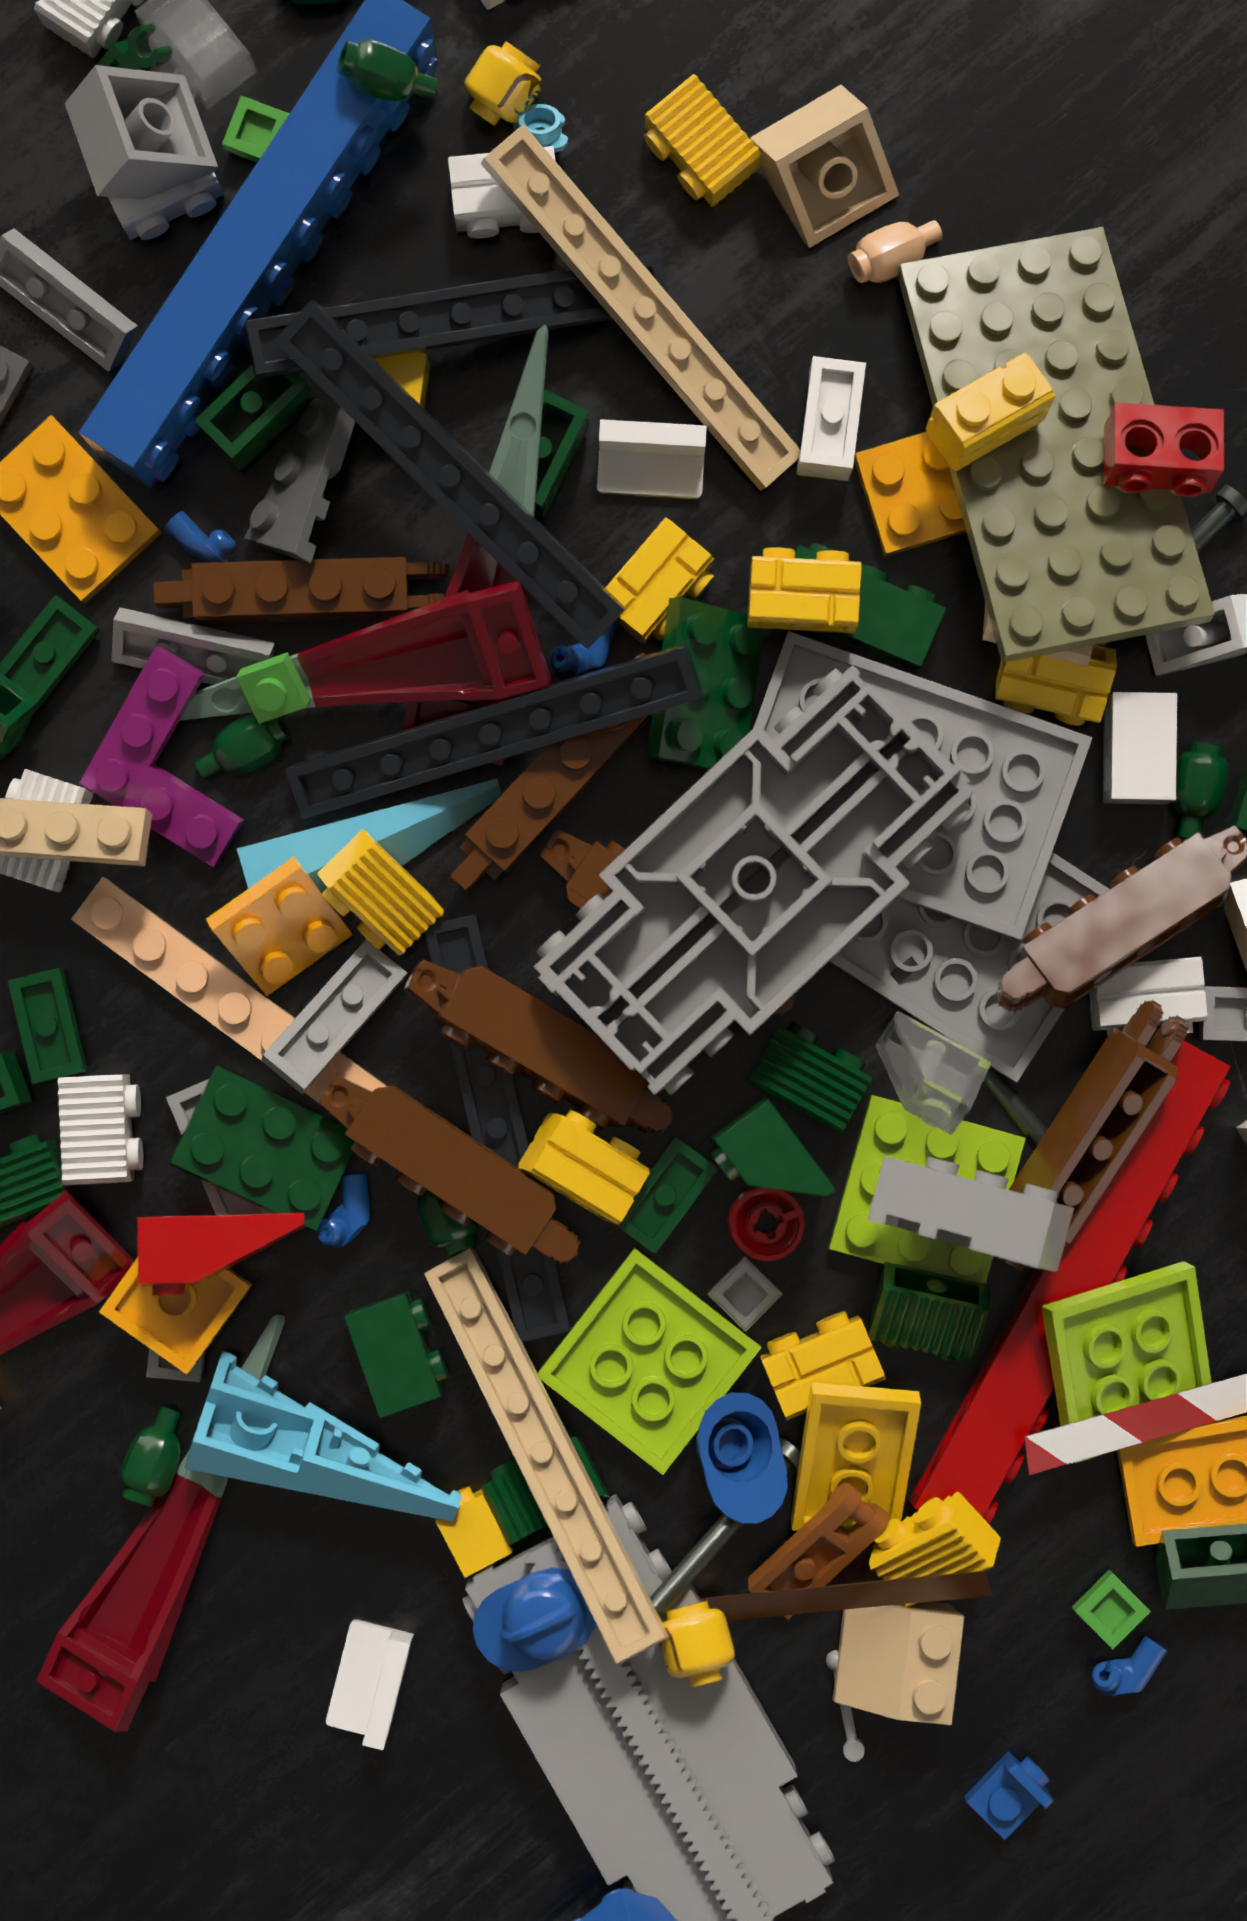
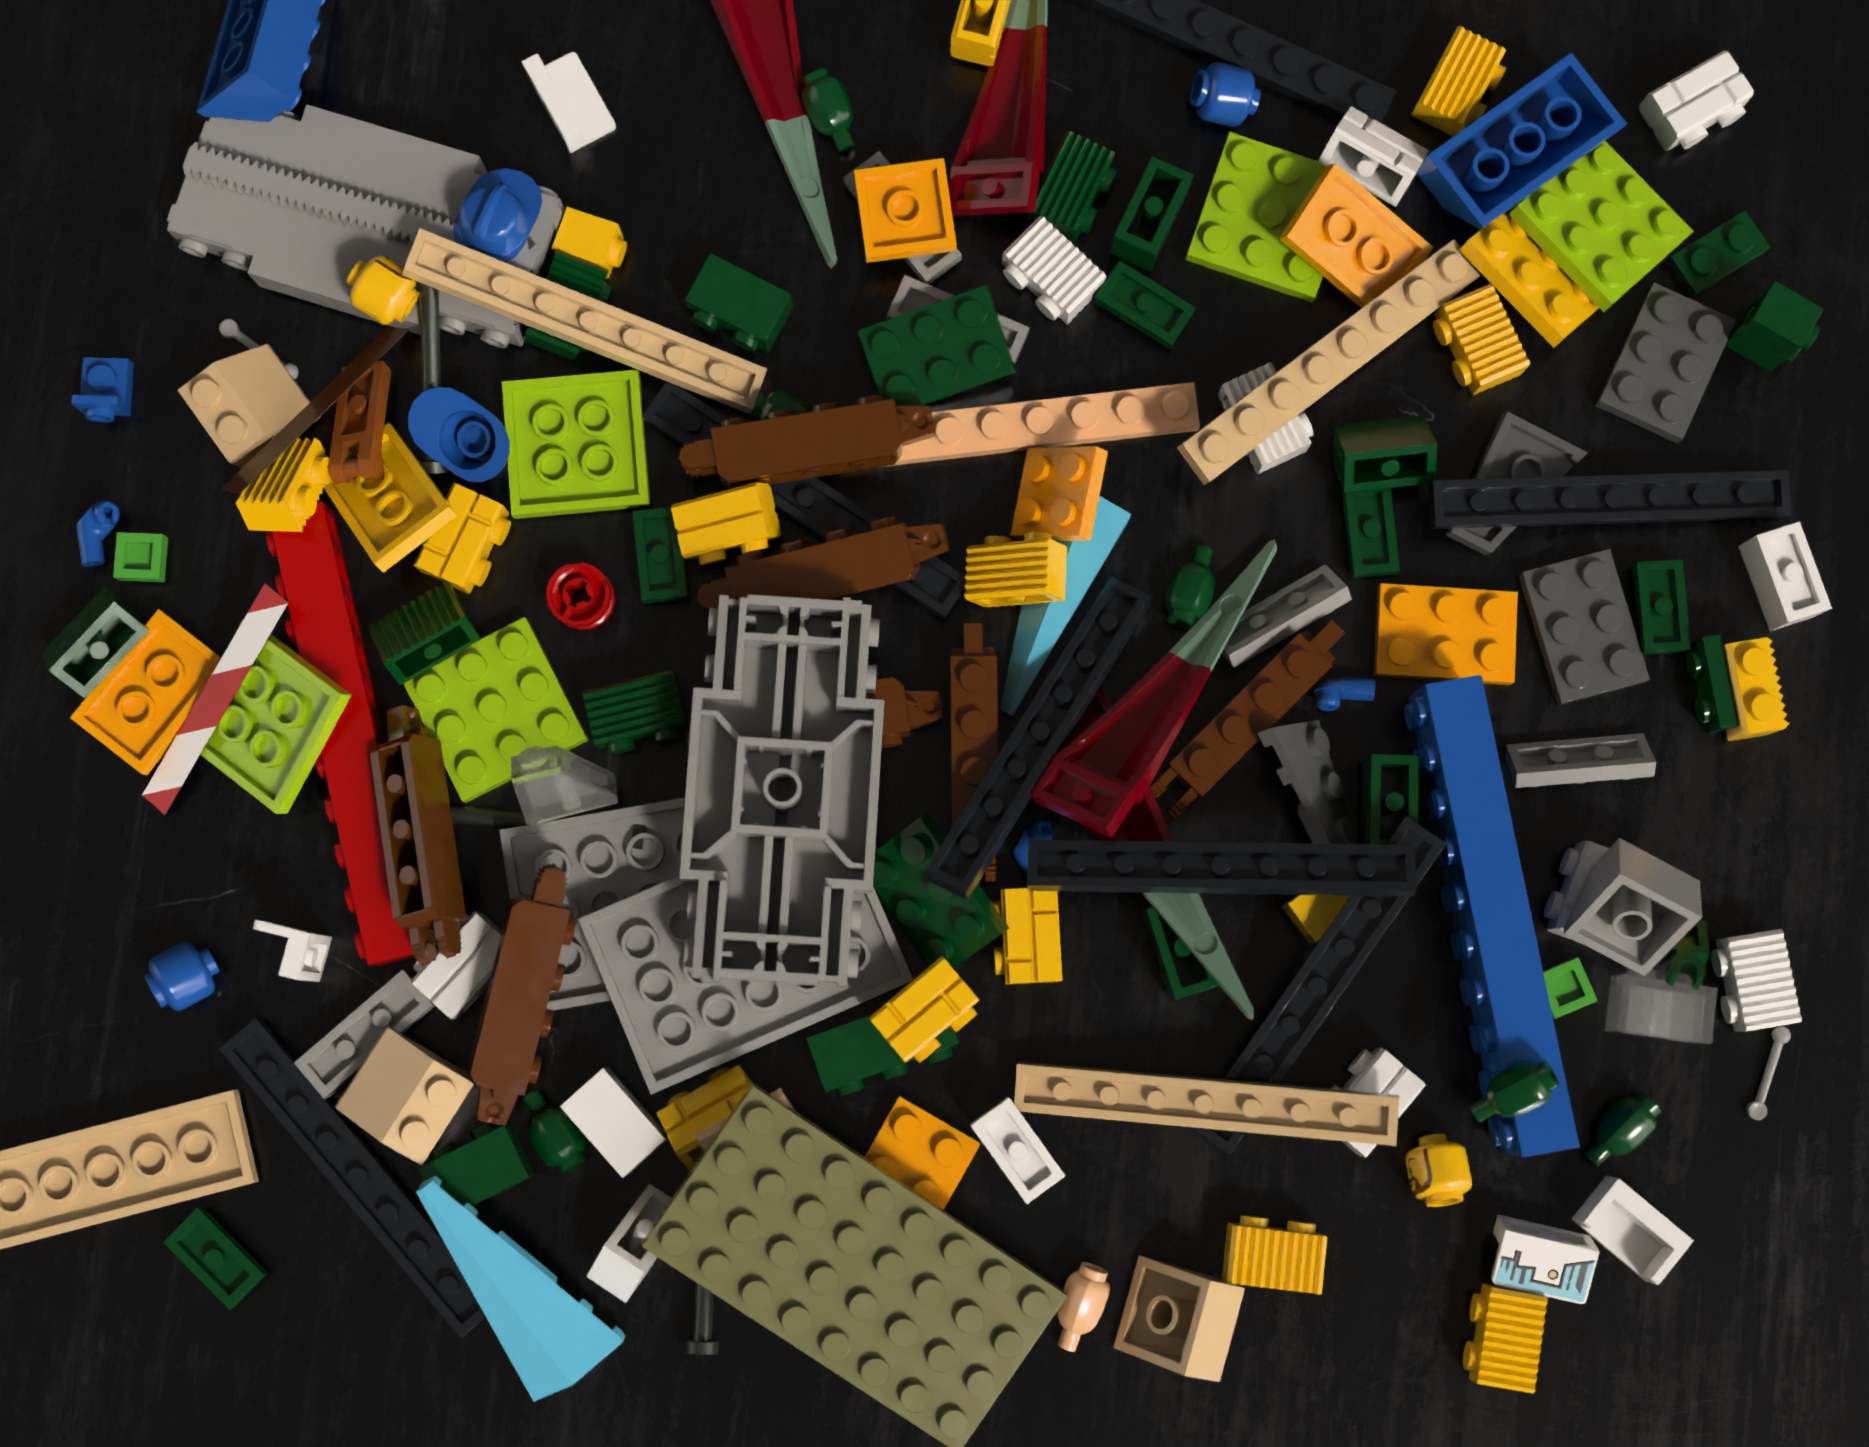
camera: 135 degrees right, 5 degrees down
(126, 761) = (1239, 502): magenta plate -> none
(196, 1248) = (919, 246): red slope -> none
(271, 1440) = (762, 183): medium azure wedge -> none
(273, 688) = (1205, 635): bright green plate -> none
(334, 1016) = (971, 470): light grey plate -> none
(350, 1216) = (846, 363): blue arm -> none
(545, 125) = (1391, 1172): medium azure plate -> none
(651, 459) = (1108, 1013): white panel -> none
(745, 1293) = (553, 541): light grey tile -> none
(767, 1153) = (614, 629): dark green slope -> none
(972, 1212) = (448, 711): light grey wedge -> none
(990, 412) = (912, 1240): yellow brick -> none
(1161, 435) = (785, 1332): red brick -> none

